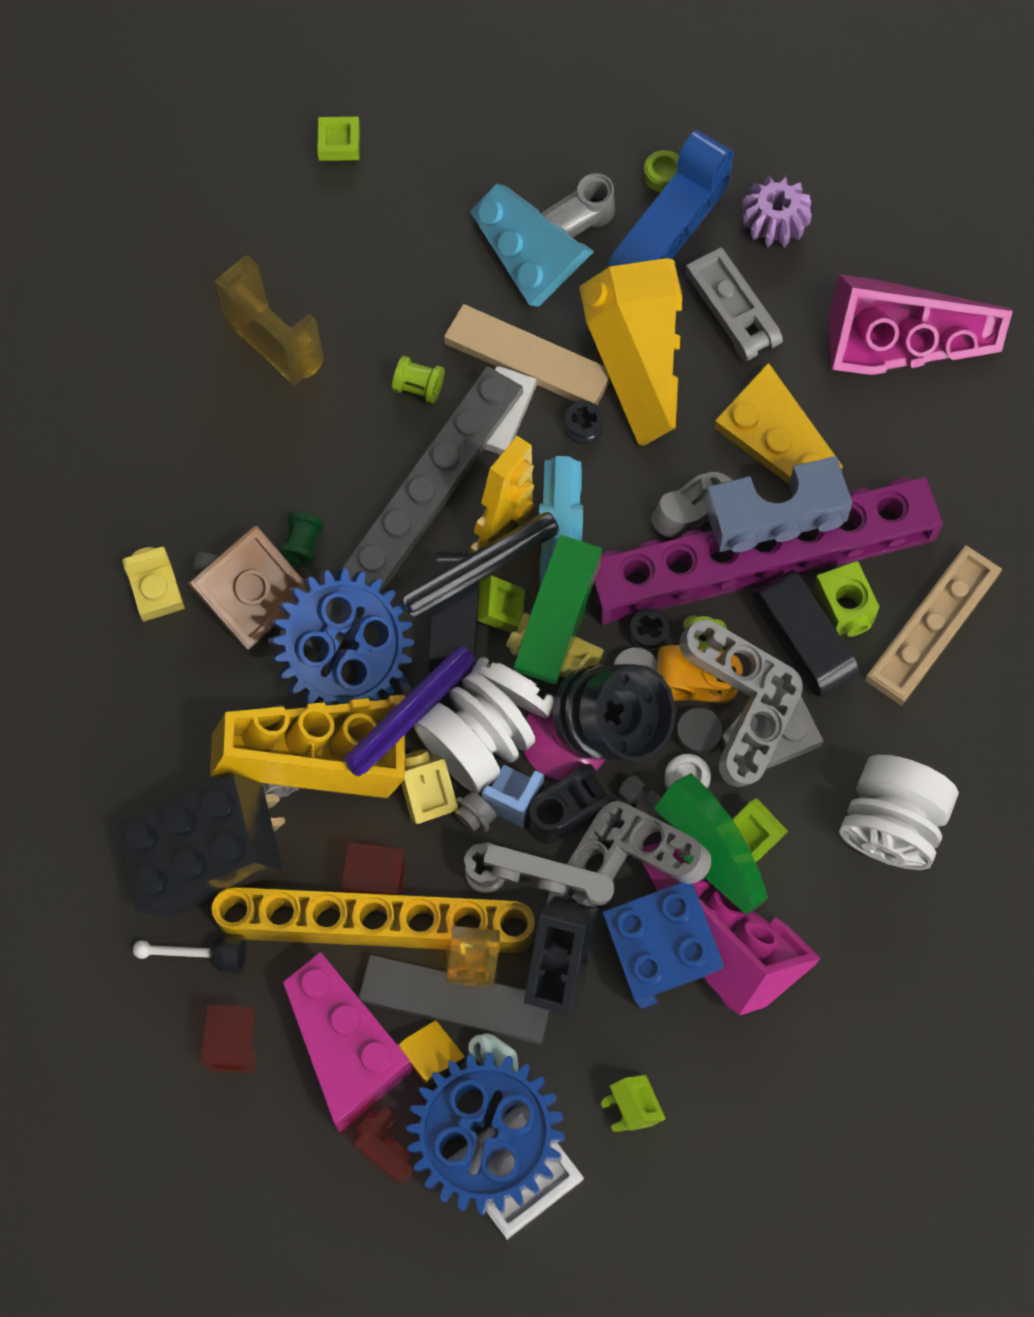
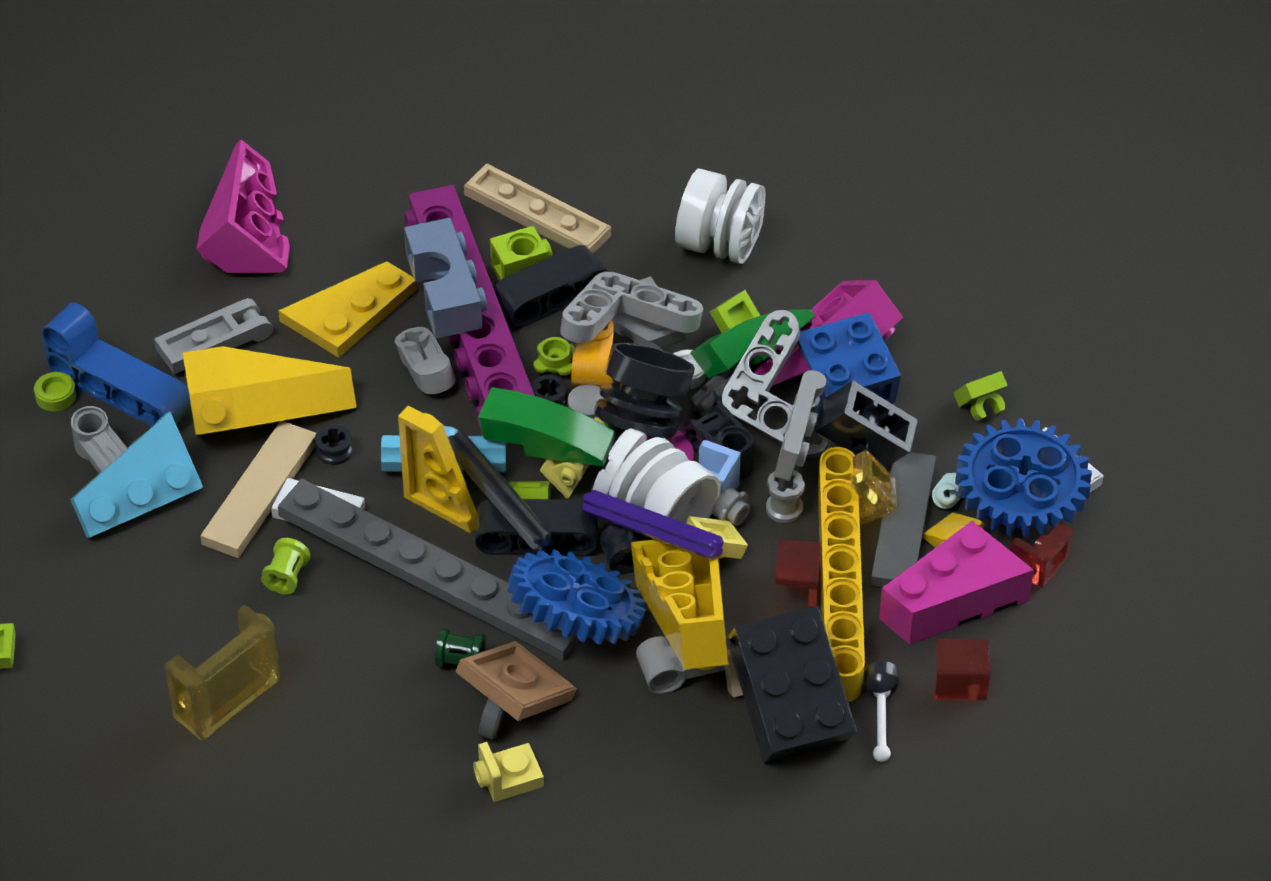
camera: 95 degrees left, 20 degrees down
(776, 211) = (116, 301): lavender gear -> none

